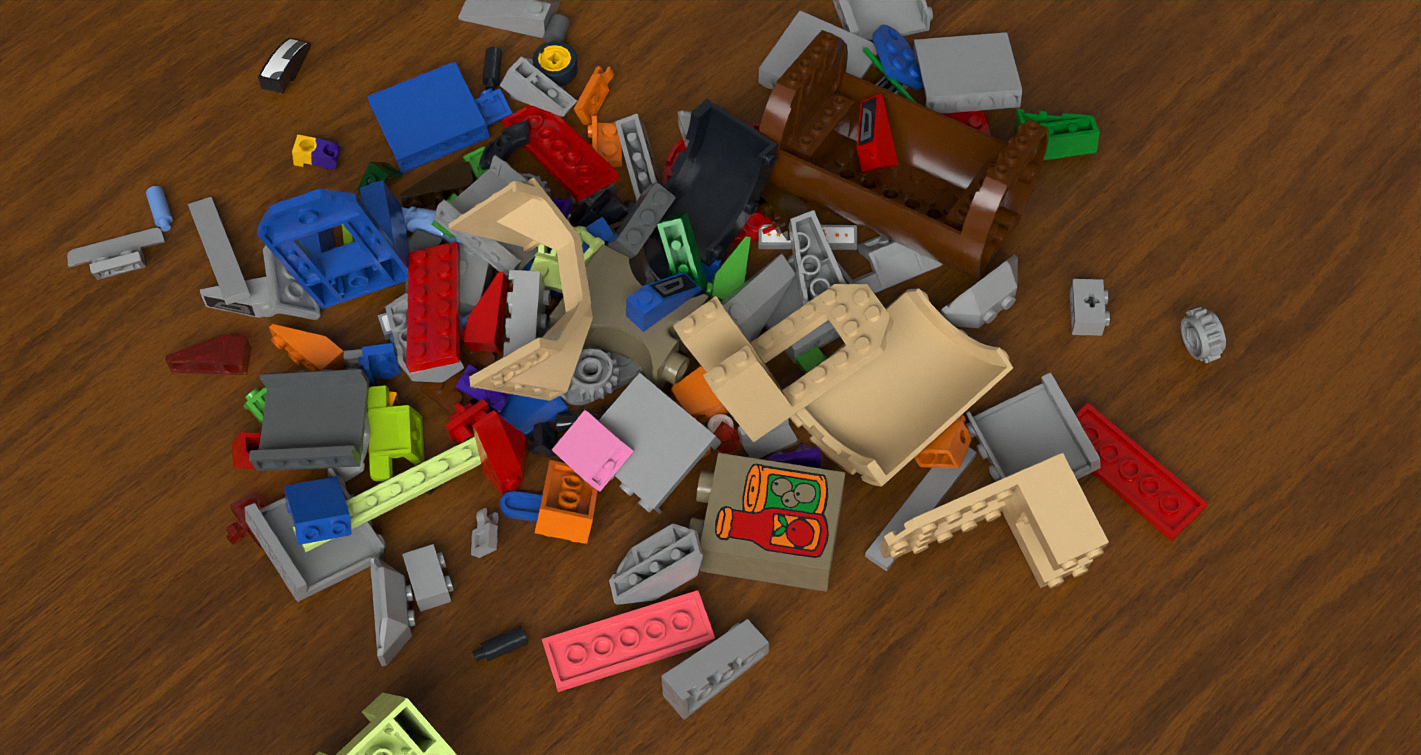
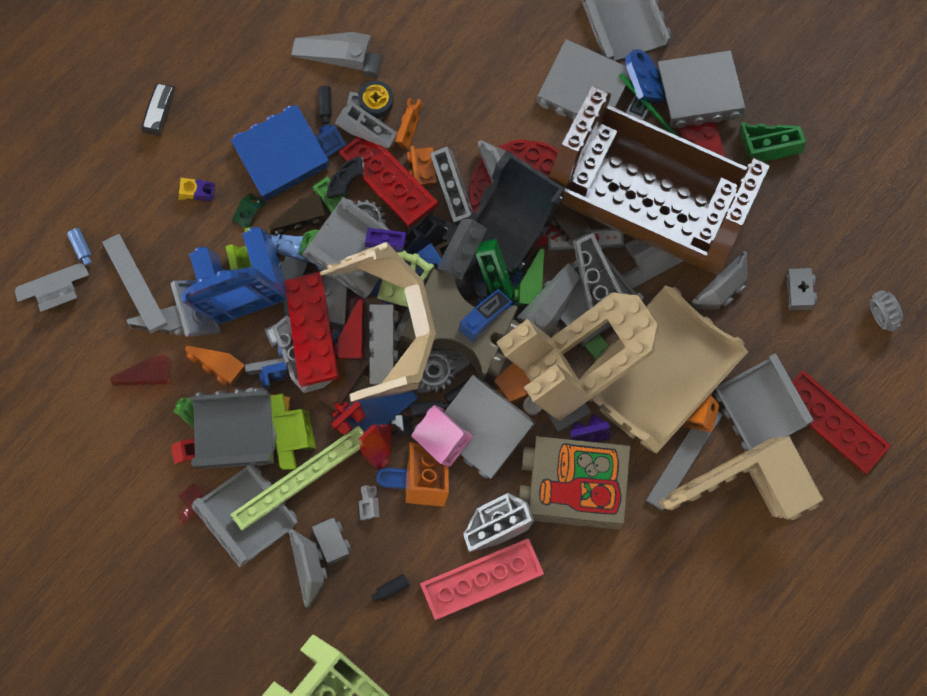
camera: 10 degrees left, 15 degrees up
(318, 510) = (247, 499): blue panel -> none
(495, 399) = (348, 385): dark purple tile -> none
(713, 668) = (546, 596): light grey wedge -> none
(728, 437) = (539, 415): clear red tile -> none
(875, 139) = (634, 161): red slope -> none

